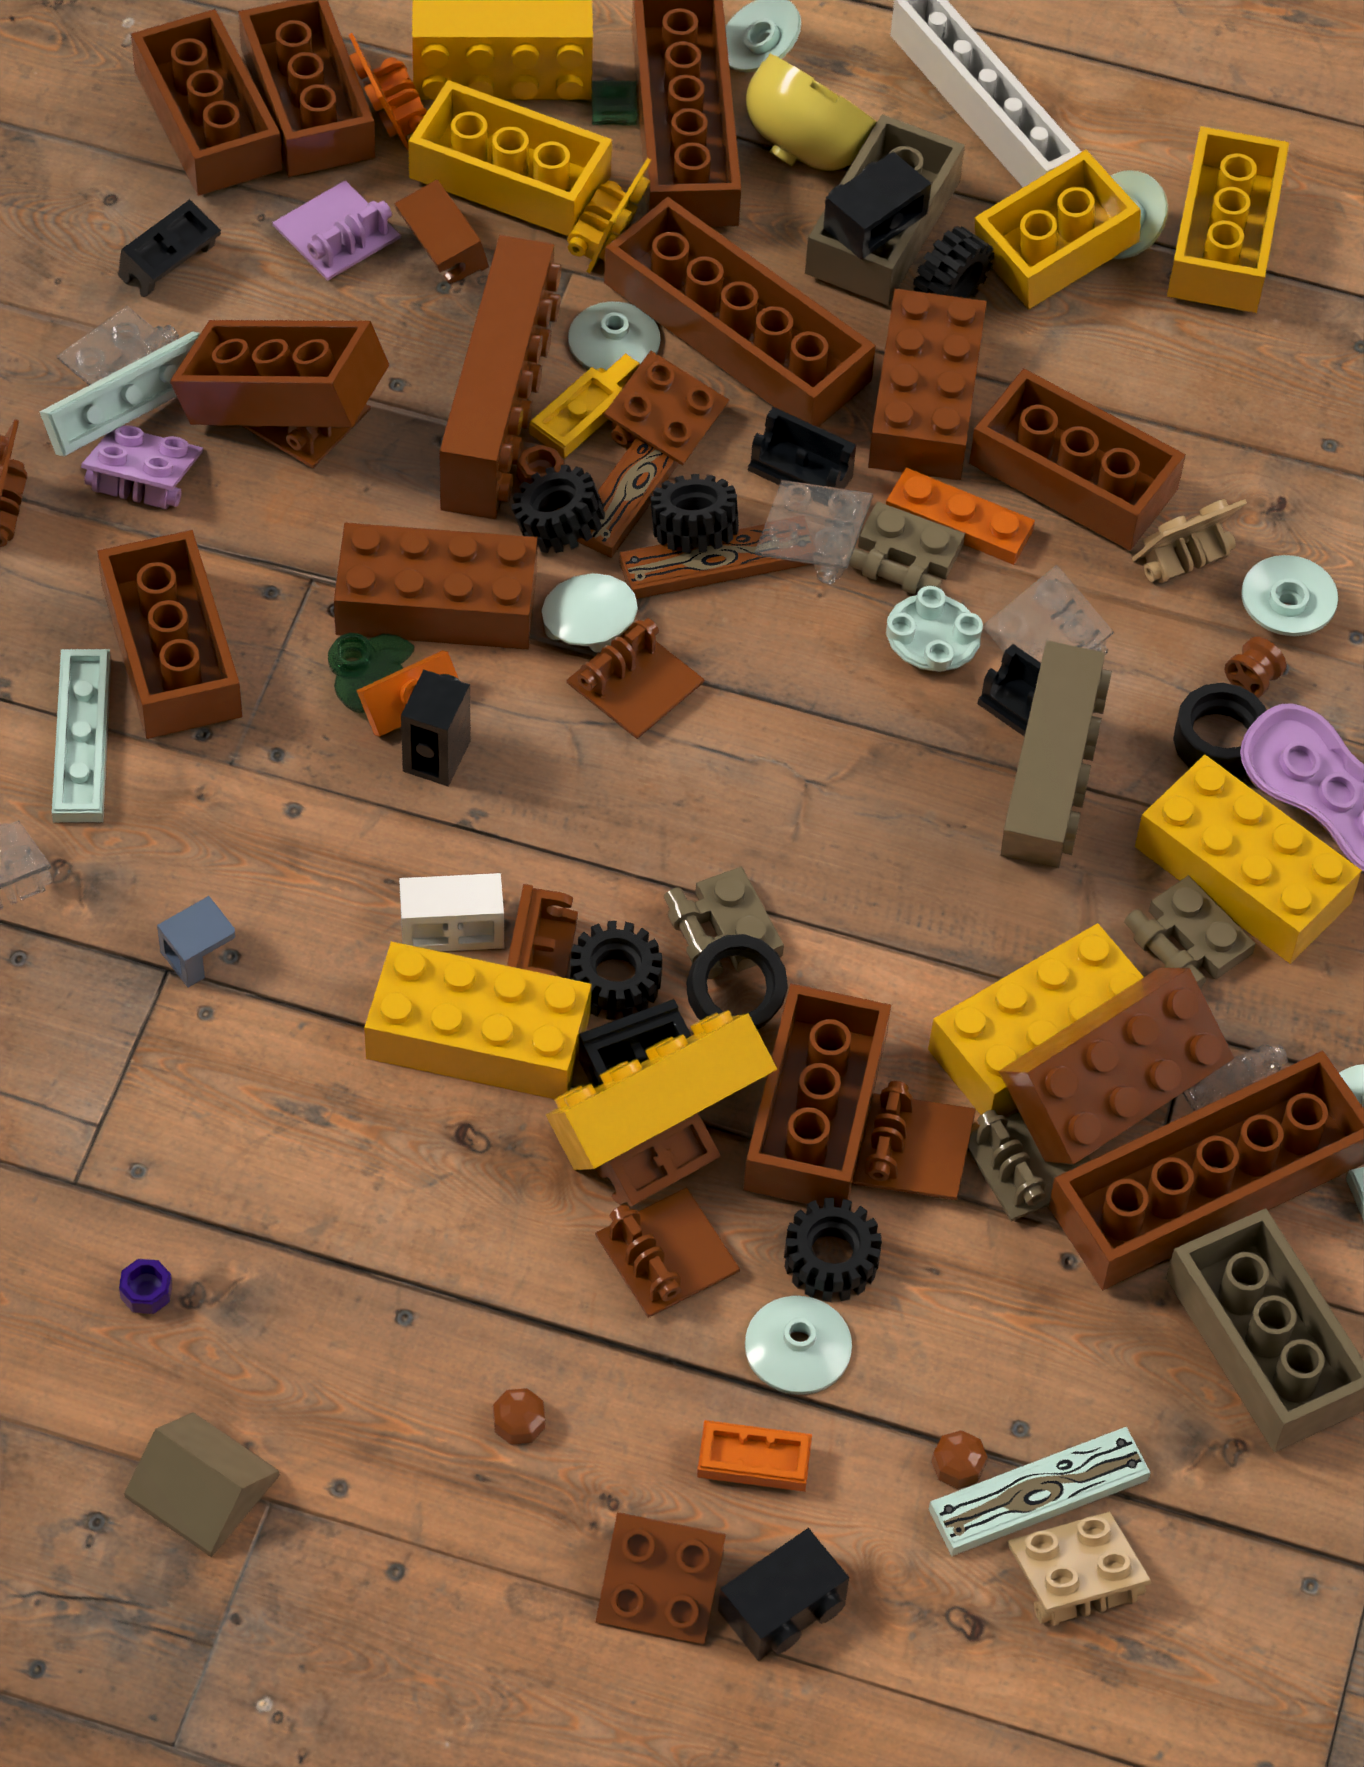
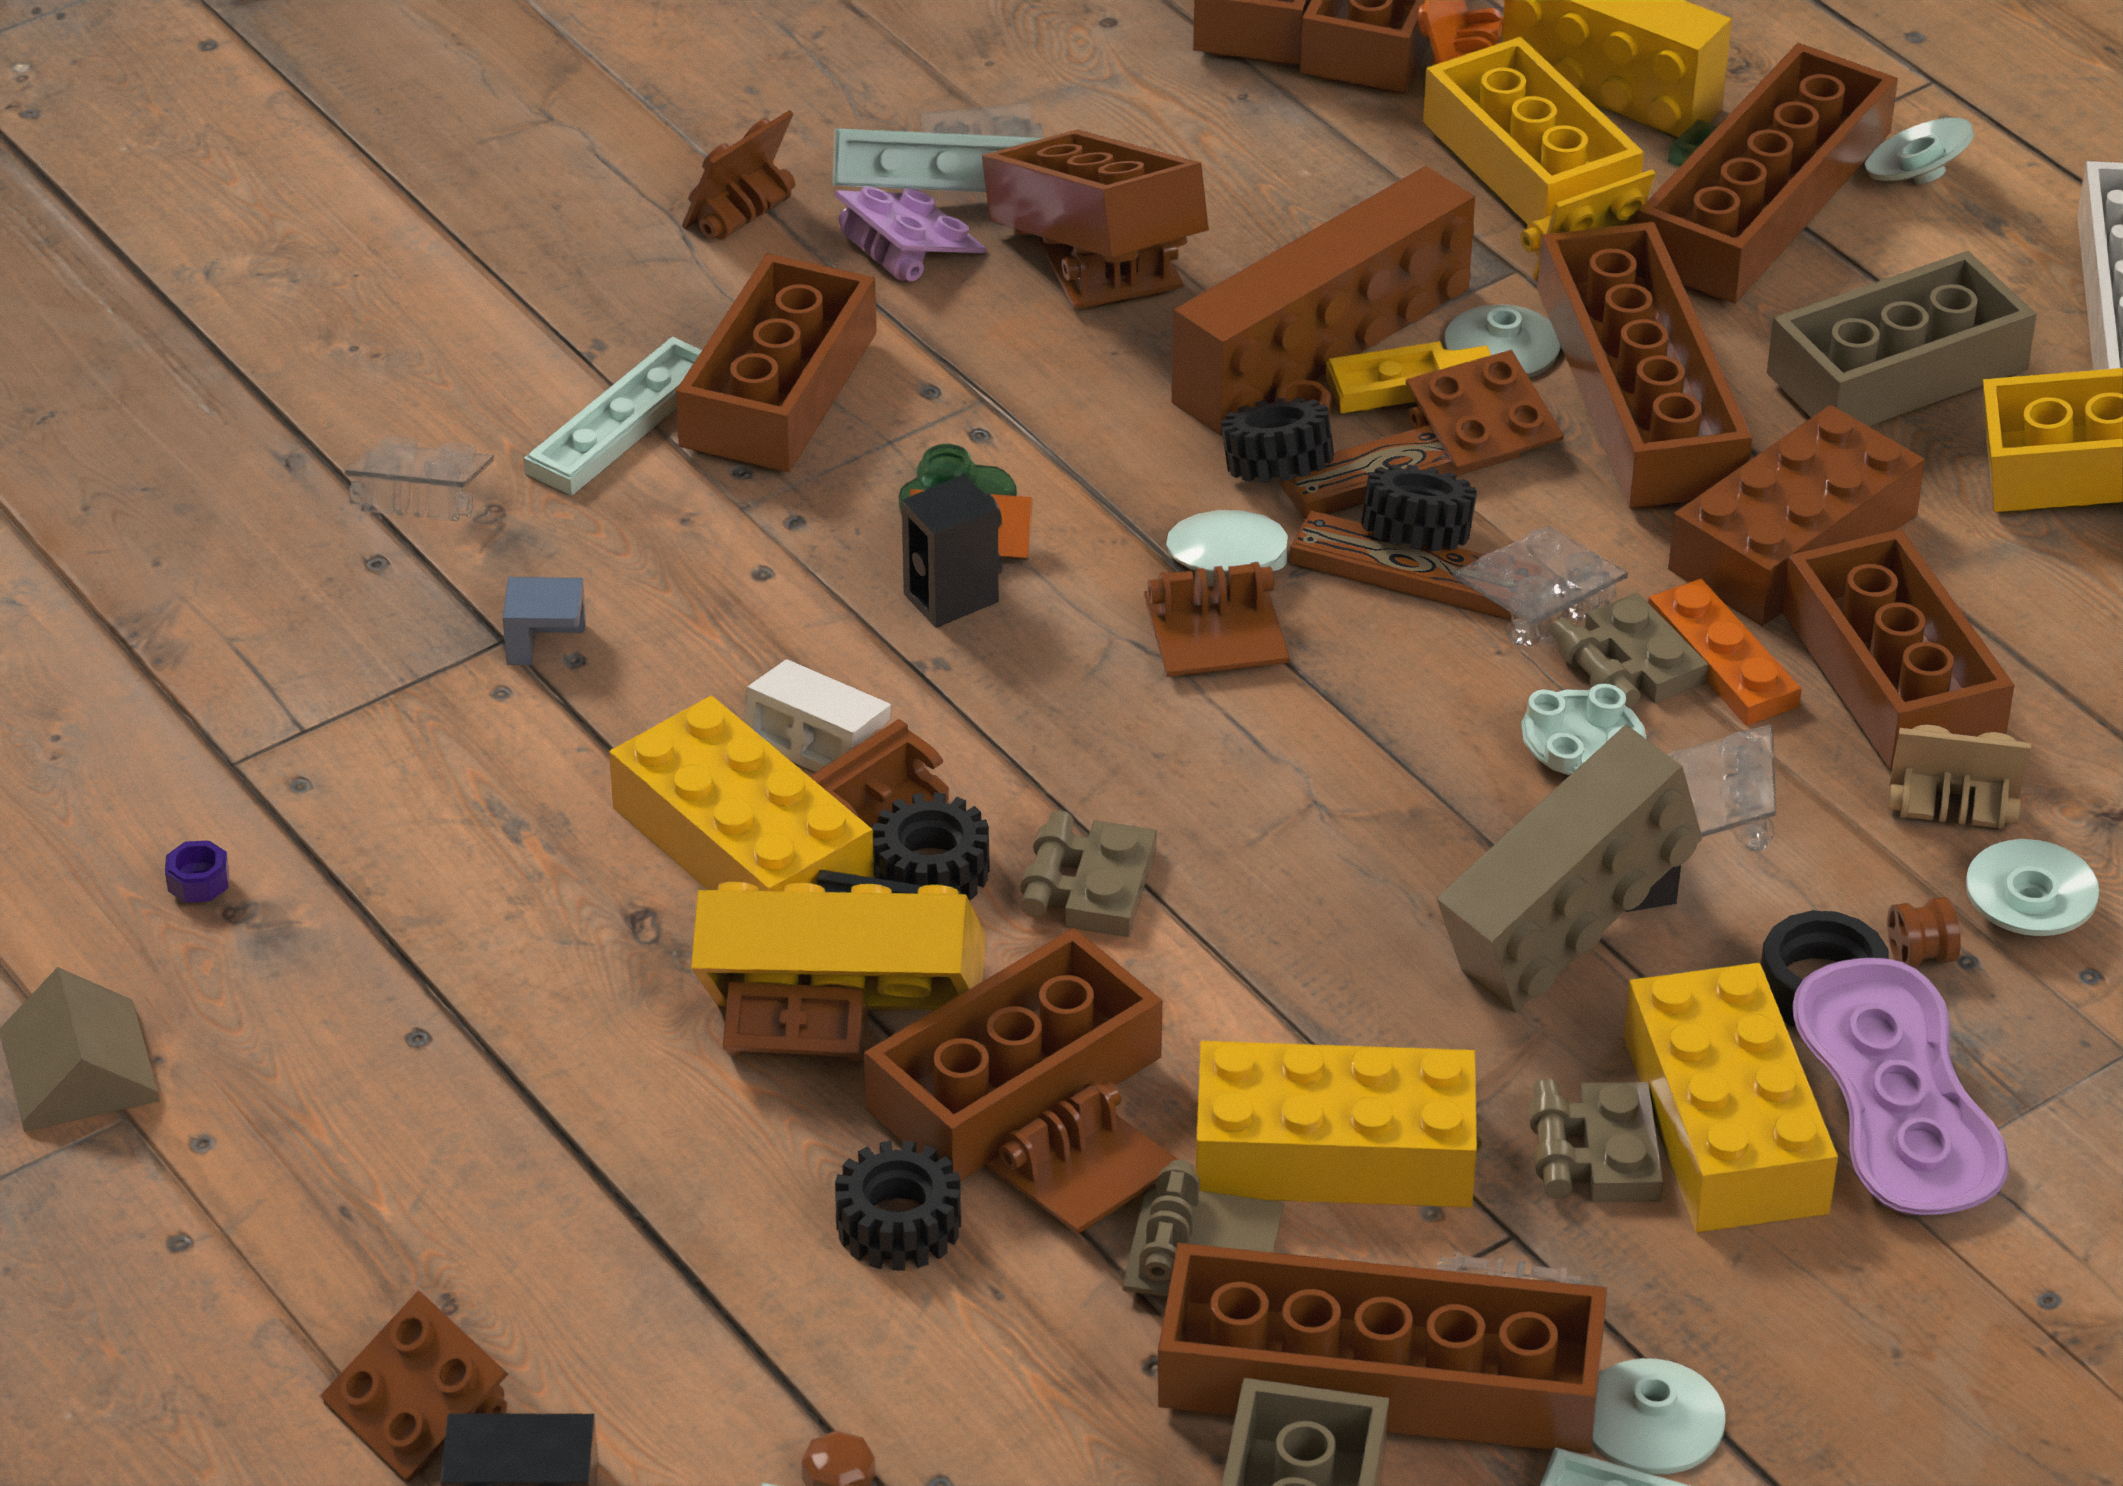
camera: 40 degrees right, 15 degrees down
(167, 246) = (1109, 63): black hinge -> none
(338, 229) = (1303, 132): lavender hinge -> none
(436, 585) = (1088, 447): dark orange brick -> none
(443, 231) = (1398, 151): dark orange hinge -> none
(519, 1416) = (431, 1174): dark orange tile -> none
(666, 1251) = (728, 1115): dark orange hinge -> none
(747, 947) = (1021, 875): black tyre -> none
(754, 1455) = (625, 1338): orange plate -> none
(792, 1364) = (782, 1277): light aqua dish -> none
(801, 453) = (1593, 511): black hinge -> none
(805, 117) = (1881, 218): light yellow cylinder -> none
(876, 205) = (1867, 311): black brick -> none
(955, 265) = (1925, 399): black tyre -> none
(1116, 1065) = (1358, 1179): dark orange brick -> none

